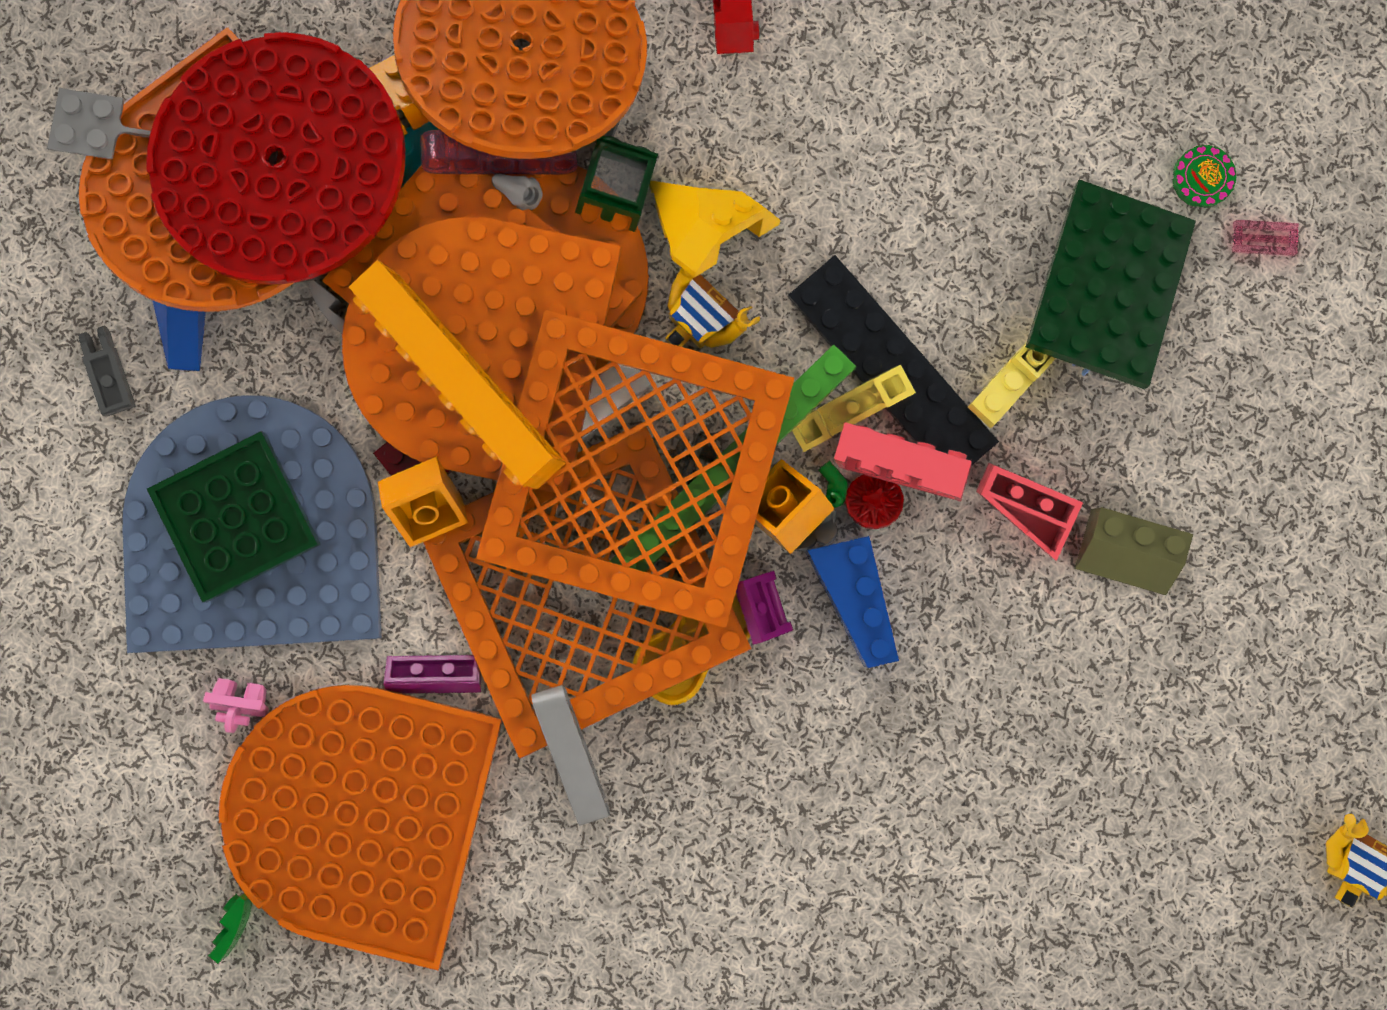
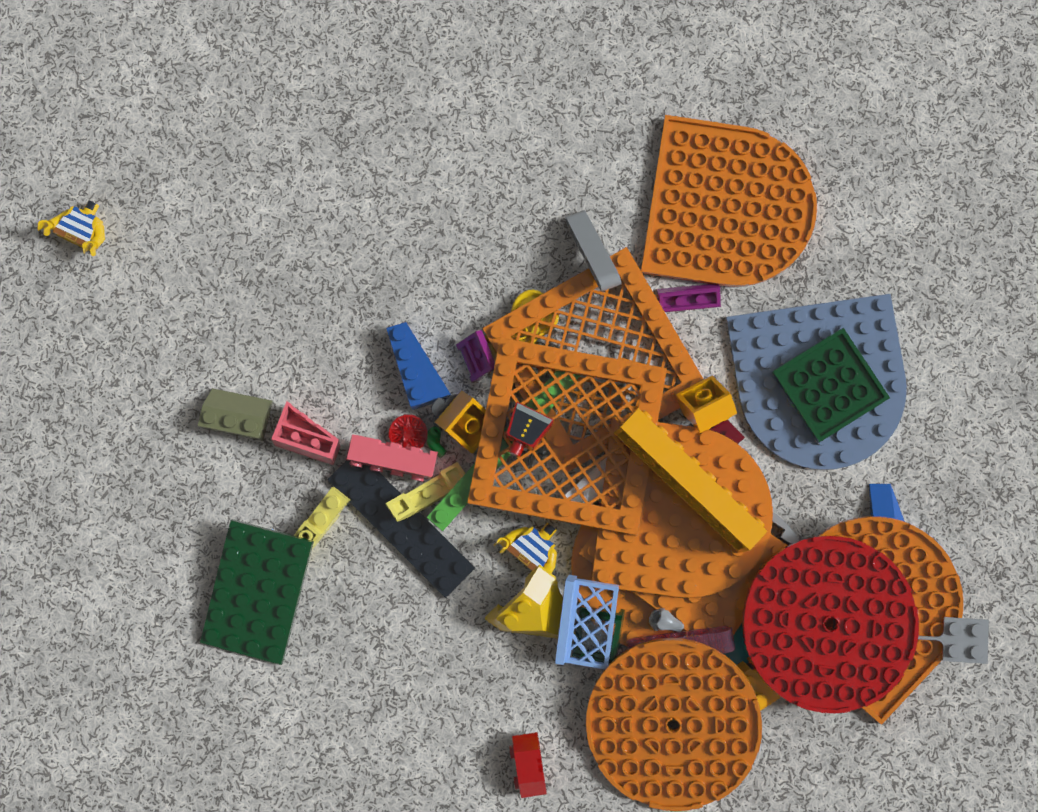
camera: 175 degrees left, 5 degrees down
(106, 373) = (931, 475): dark grey hinge -> none
(223, 699) = (823, 269): bright pink hips -> none
(234, 921) = (796, 139): green slope -> none
(655, 204) = (567, 622): none -> light blue fence
(697, 478) = (526, 429): none -> torso
(1204, 176) = (194, 675): green tile -> none
(1238, 237) = (170, 635): clear pink tile -> none

